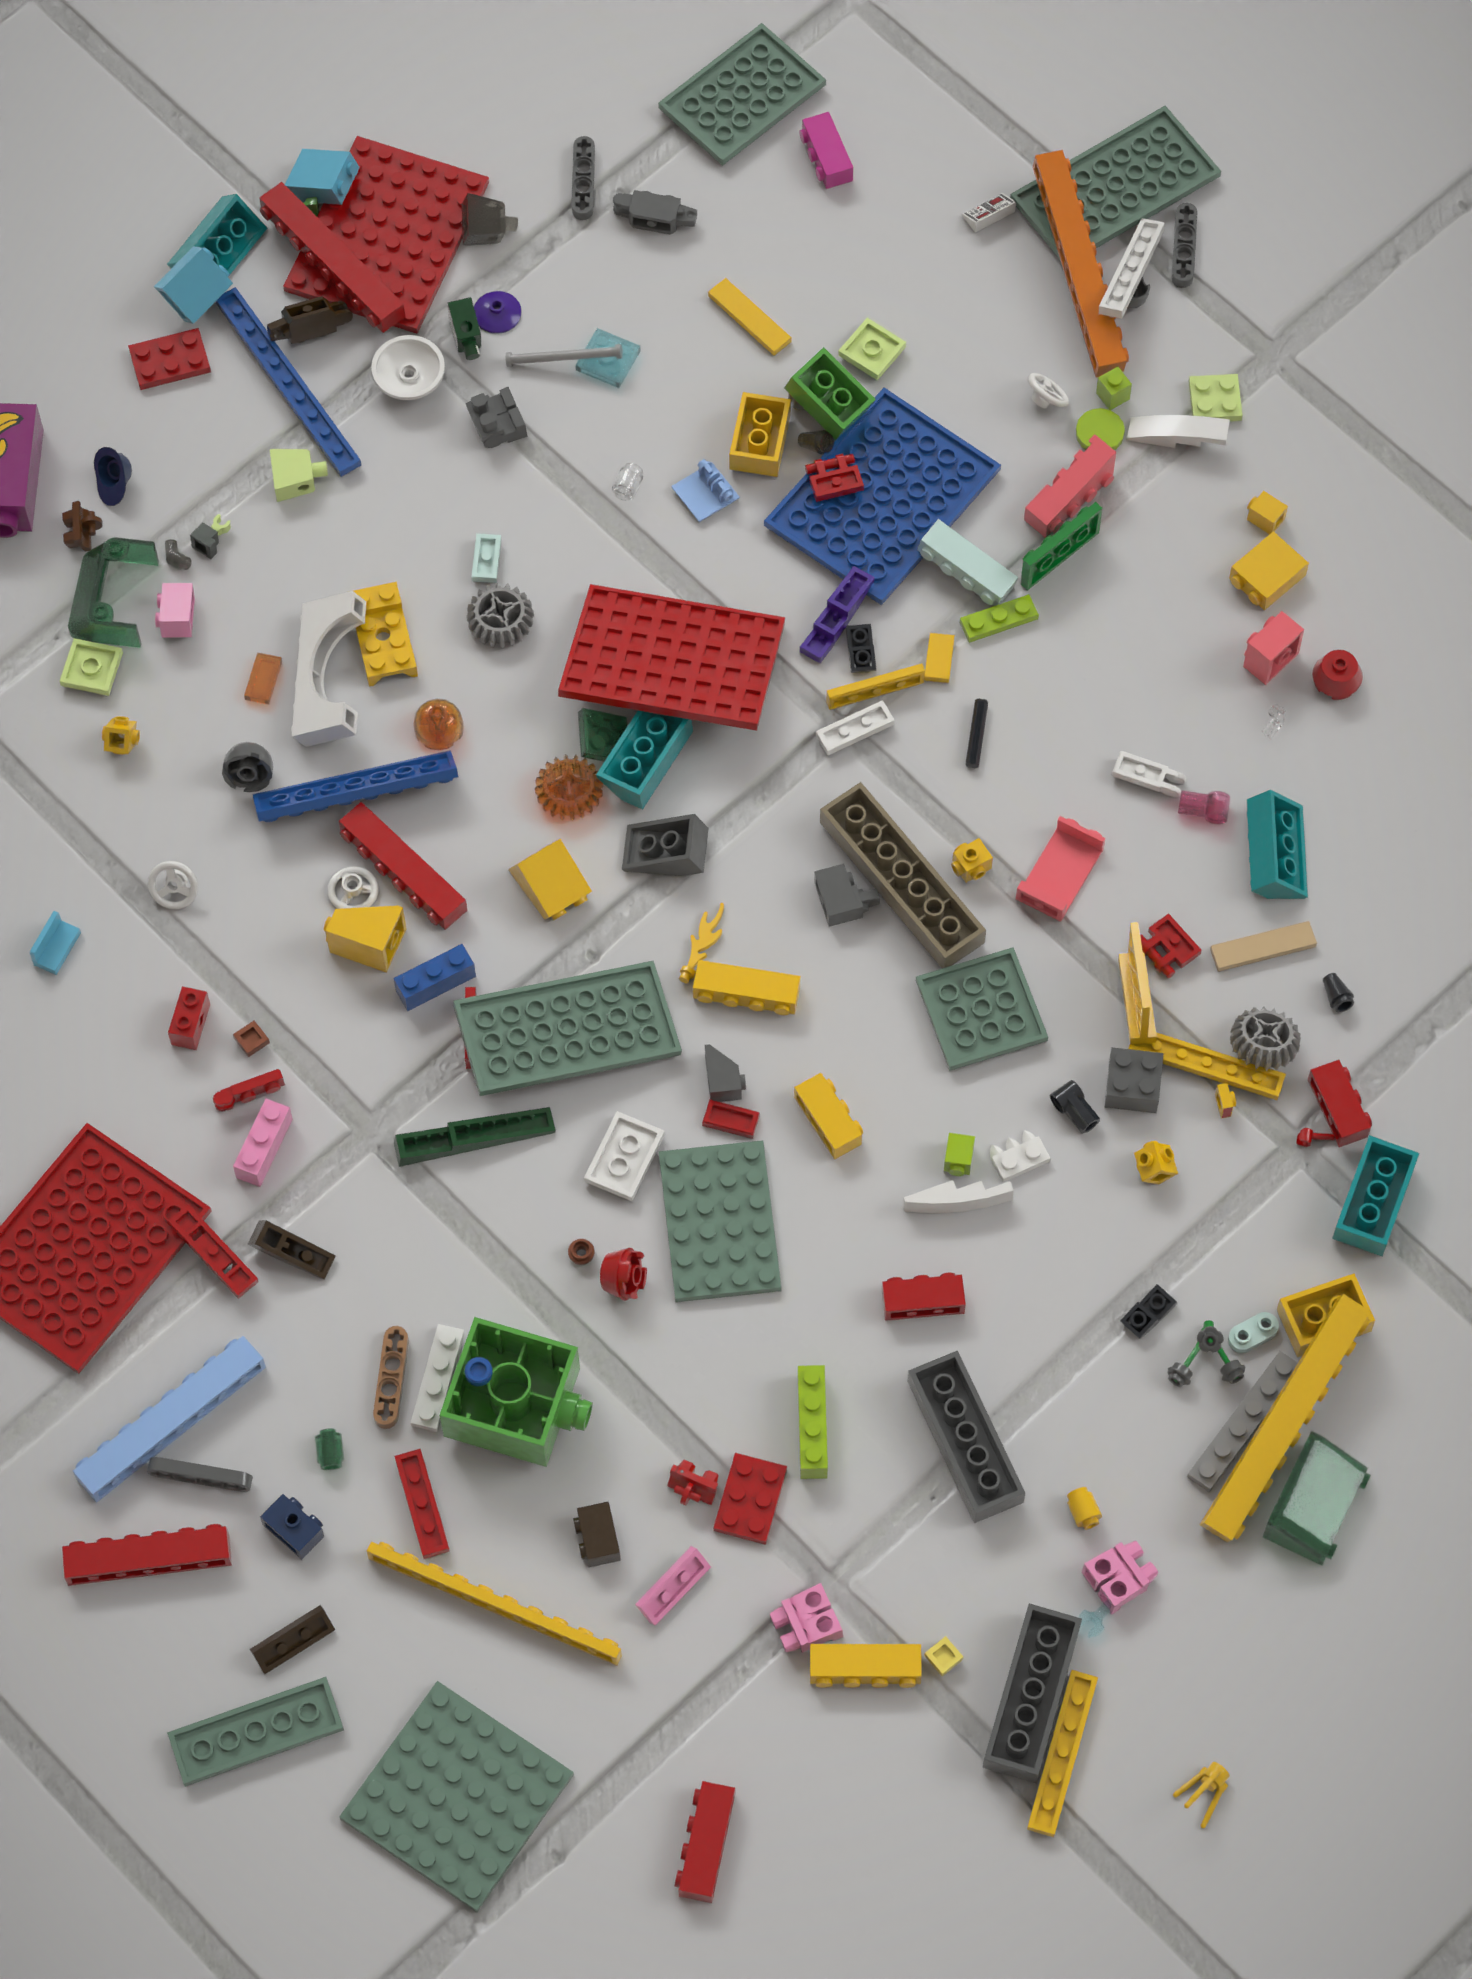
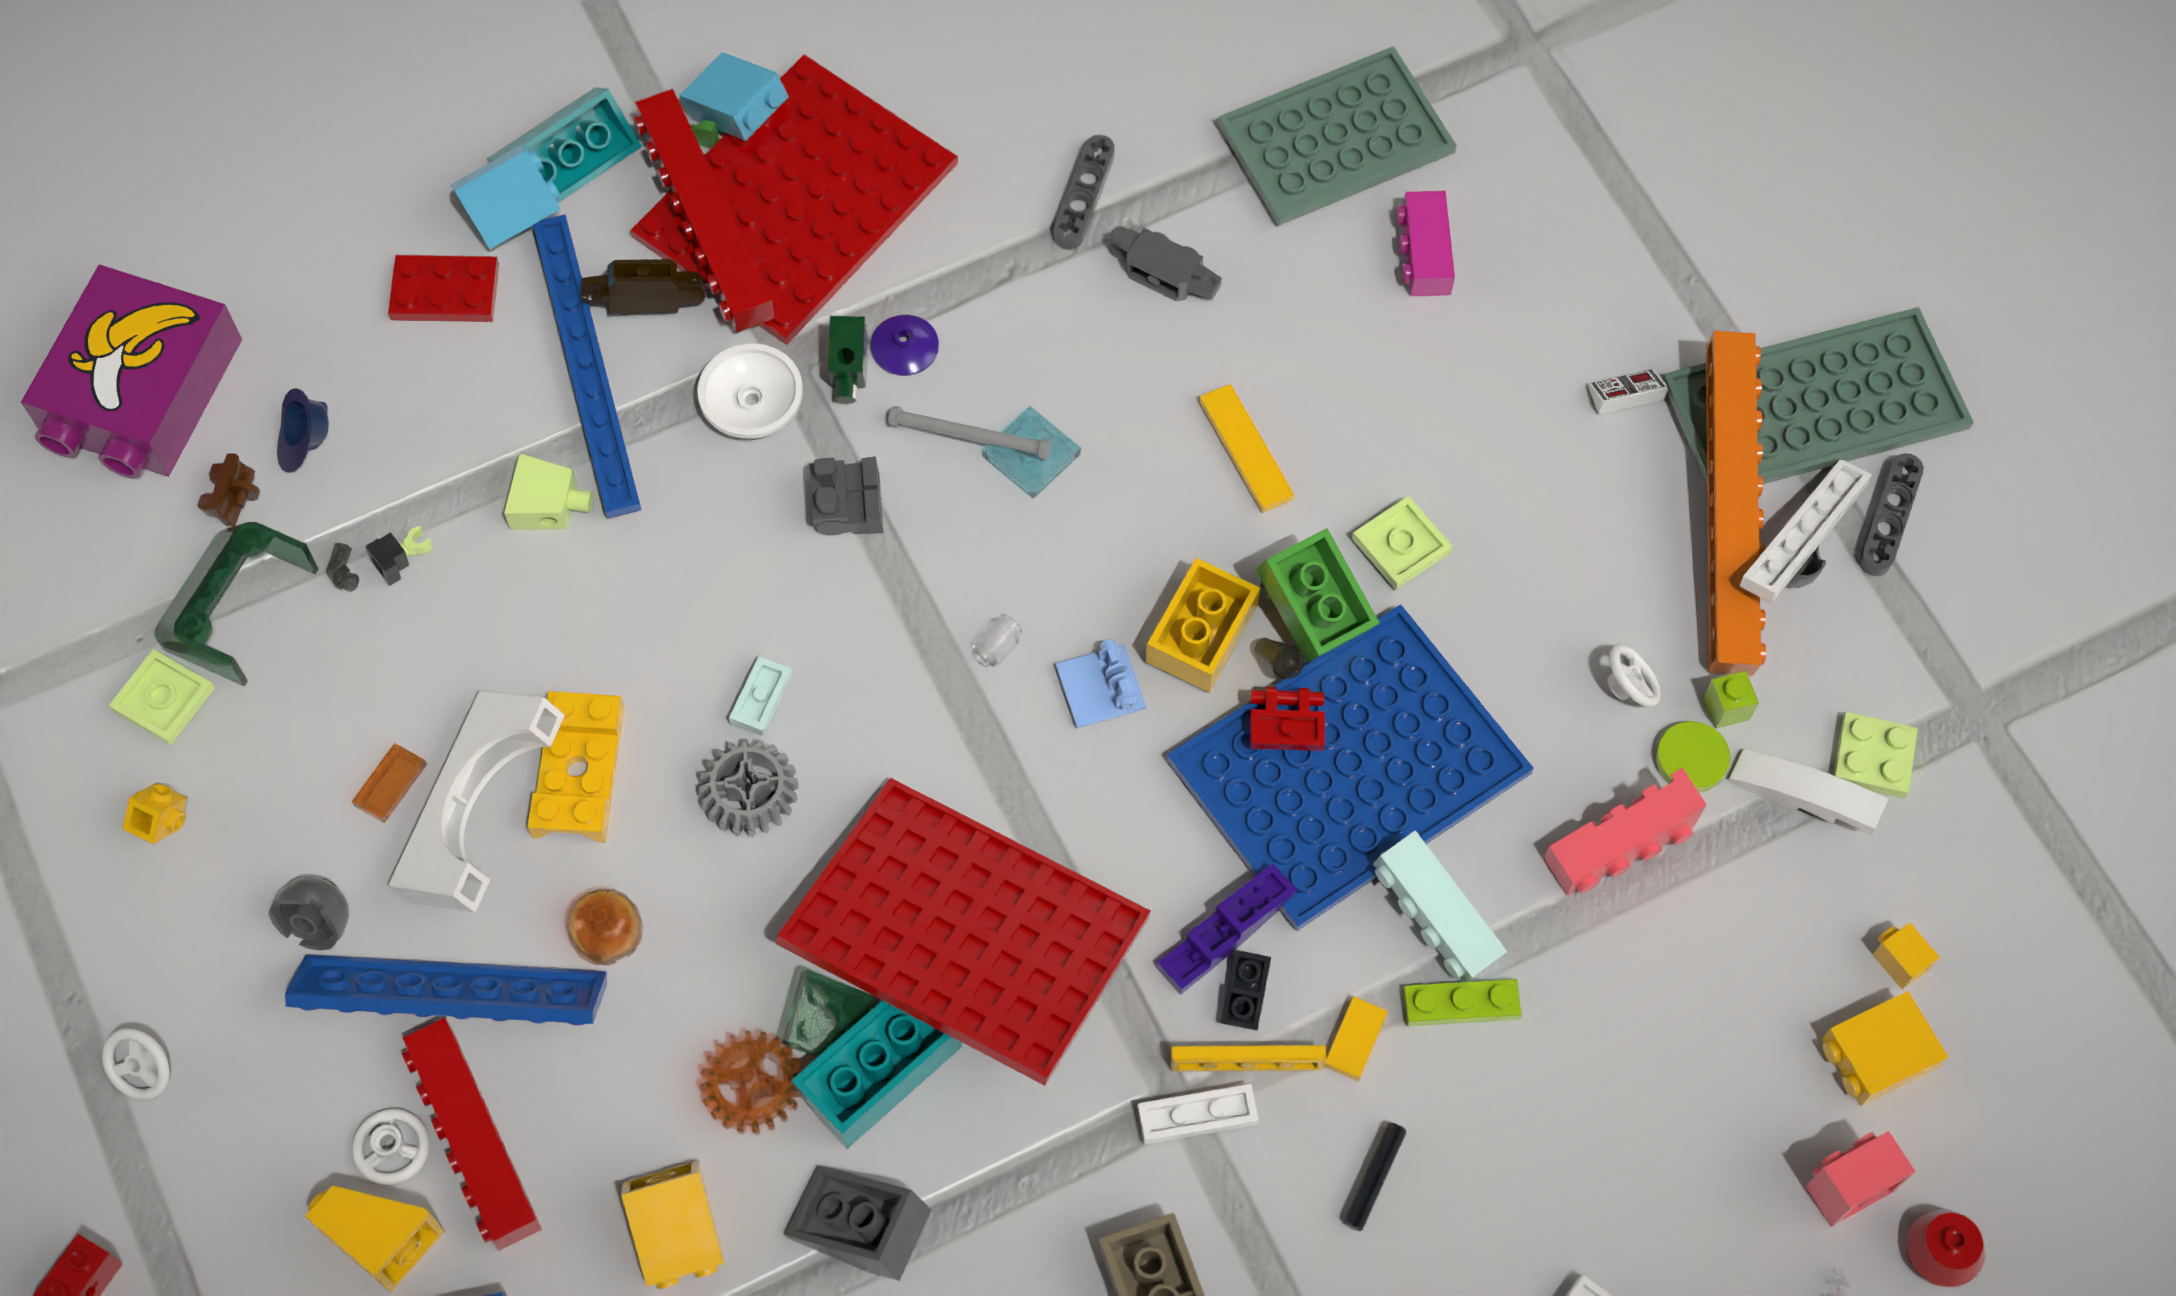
camera: 15 degrees right, 0 degrees up
(176, 610) = (306, 649): bright pink brick -> none
(485, 220) = (929, 215): clear smoke torso -> none
(1061, 546) = (1580, 923): green plate -> none

